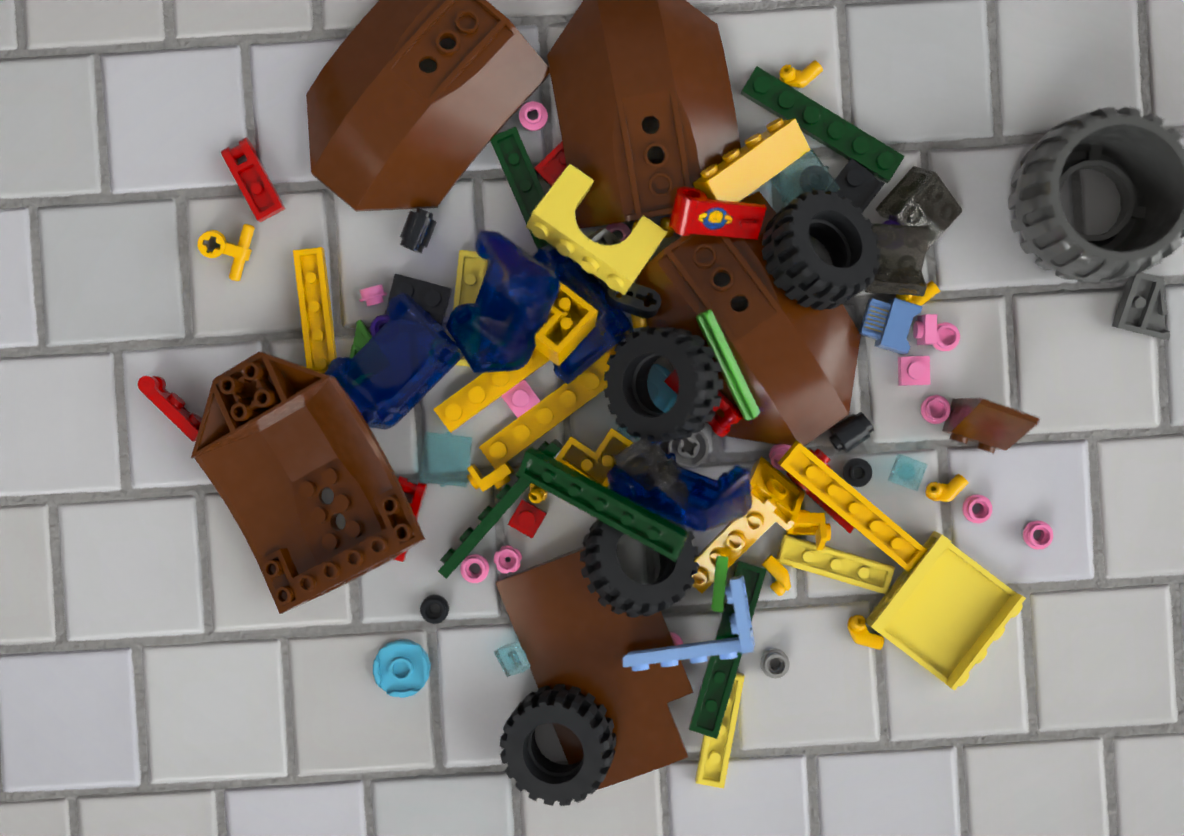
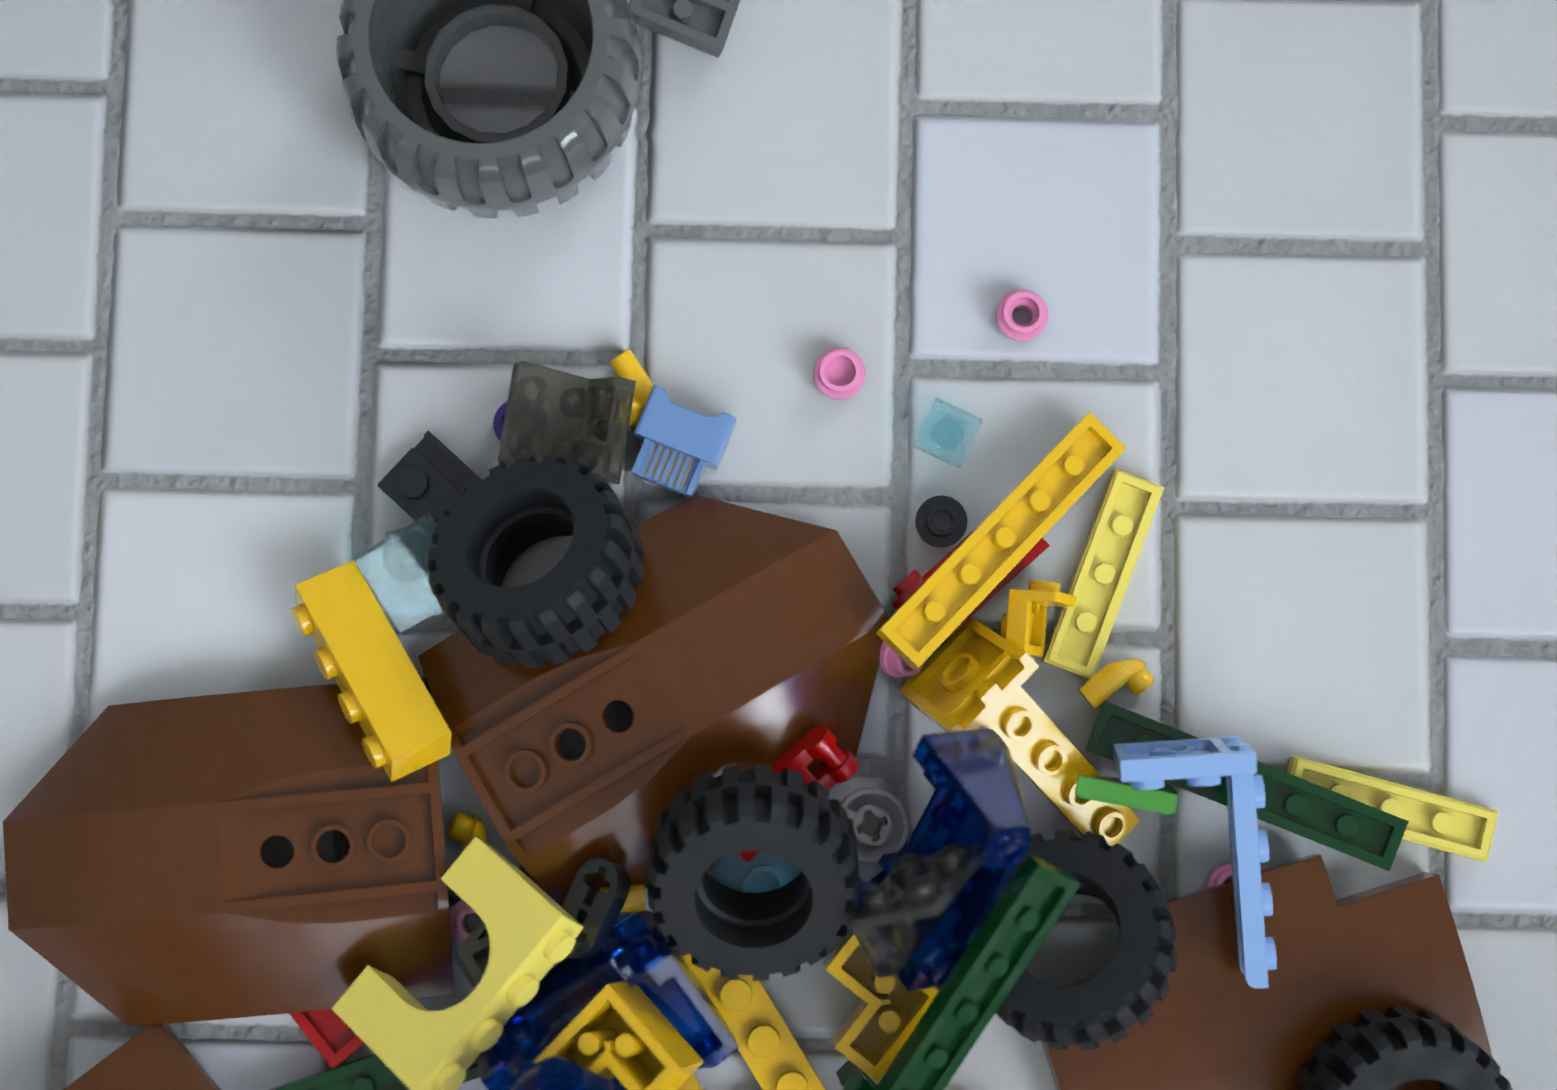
camera: 90 degrees left, 5 degrees down
(537, 124) = (252, 1055): bright pink plate -> none
(699, 215) = (452, 778): red door -> none
(728, 364) = (728, 748): bright green axle -> none
(778, 671) = (1290, 692): light grey plate -> none
(800, 78) = (223, 564): yellow arm -> none
(822, 124) = (309, 533): dark green plate -> none
(850, 432) = (868, 528): black brick -> none
(861, 635) = (1233, 538): yellow arm -> none
(914, 370) = (767, 405): bright pink plate -> none
(921, 201) = (469, 369): clear smoke bracket -> none
(925, 329) = (696, 380): bright pink plate -> none
(945, 611) = (1201, 387): light yellow panel -> none
(946, 492) = (987, 370): yellow arm -> none
(947, 337) = (711, 346): bright pink plate -> none
(987, 424) = (873, 291): reddish brown slope -> none
(1045, 538) = (1086, 203): bright pink plate -> none

